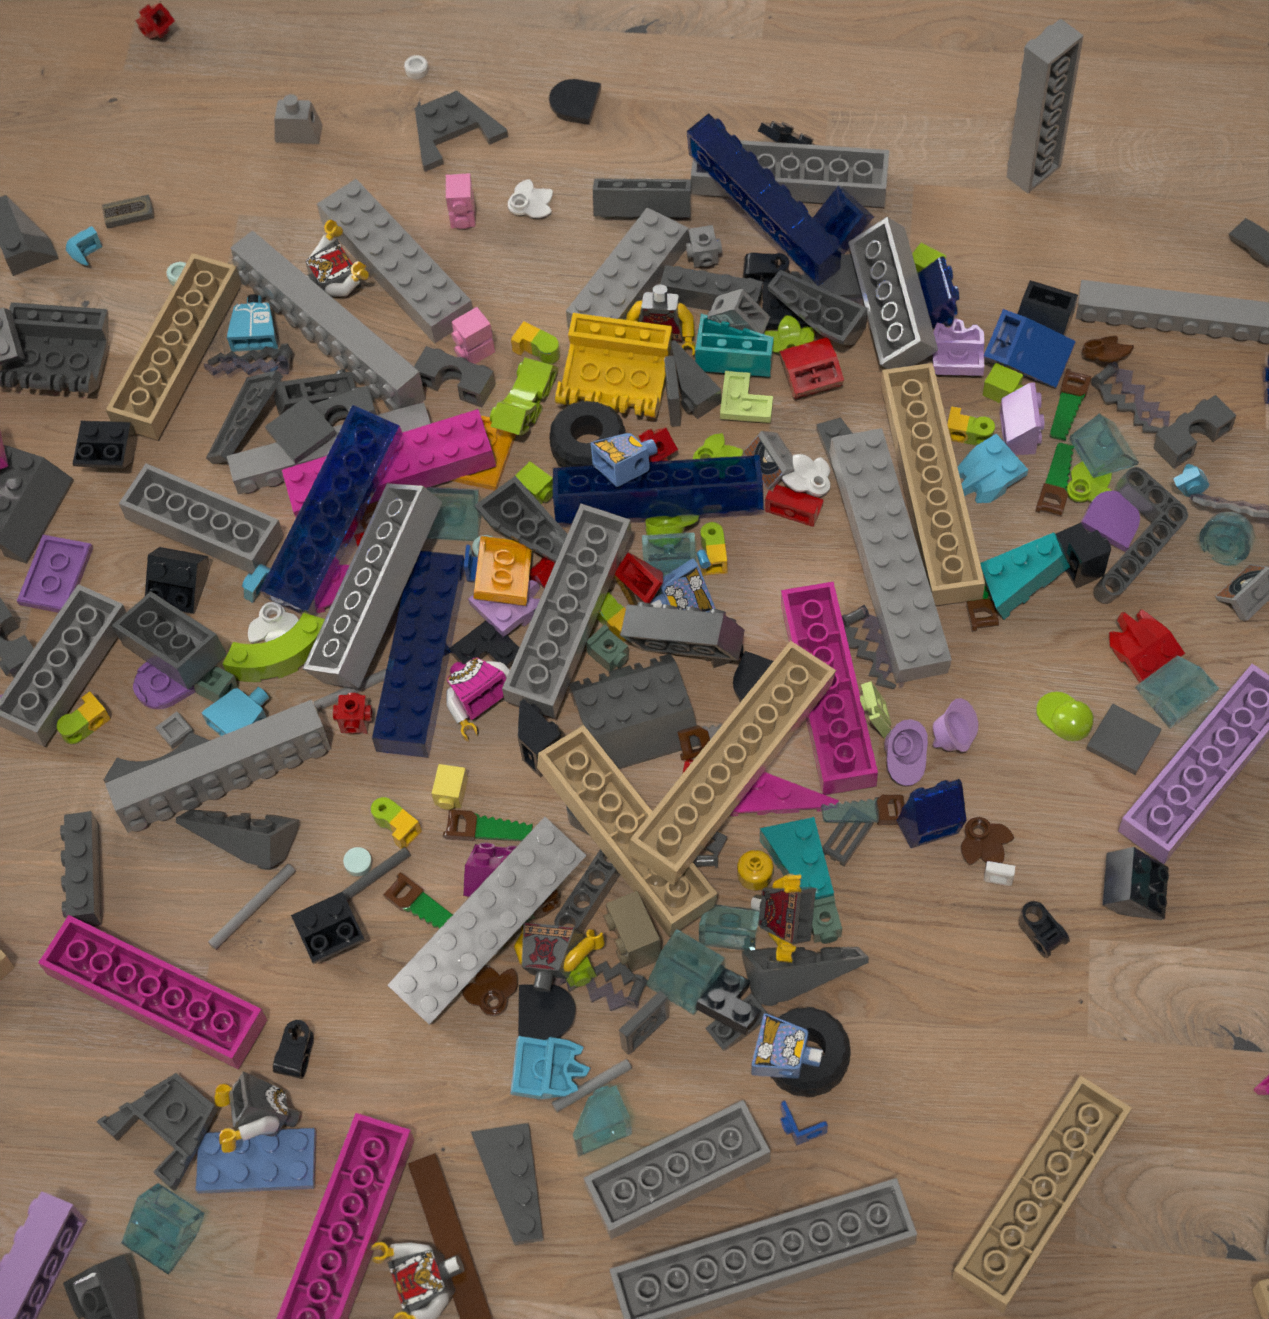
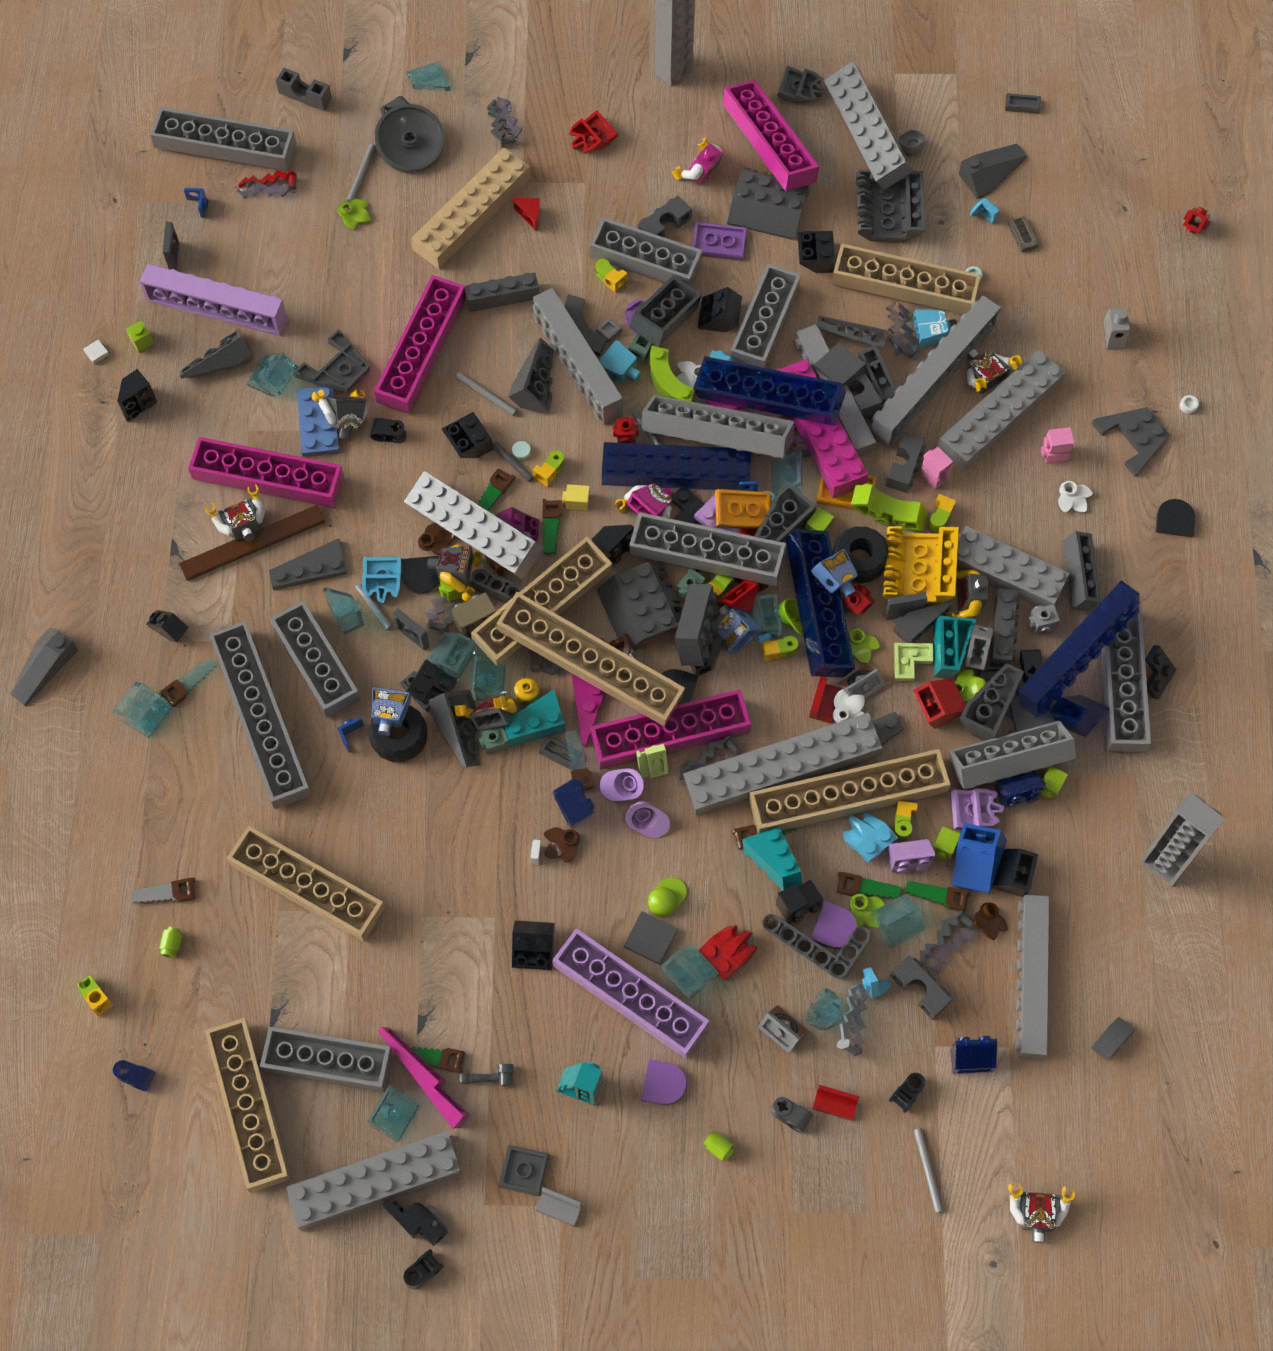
camera: 80 degrees right, 5 degrees up
(1045, 933) = (494, 882): black piece -> none

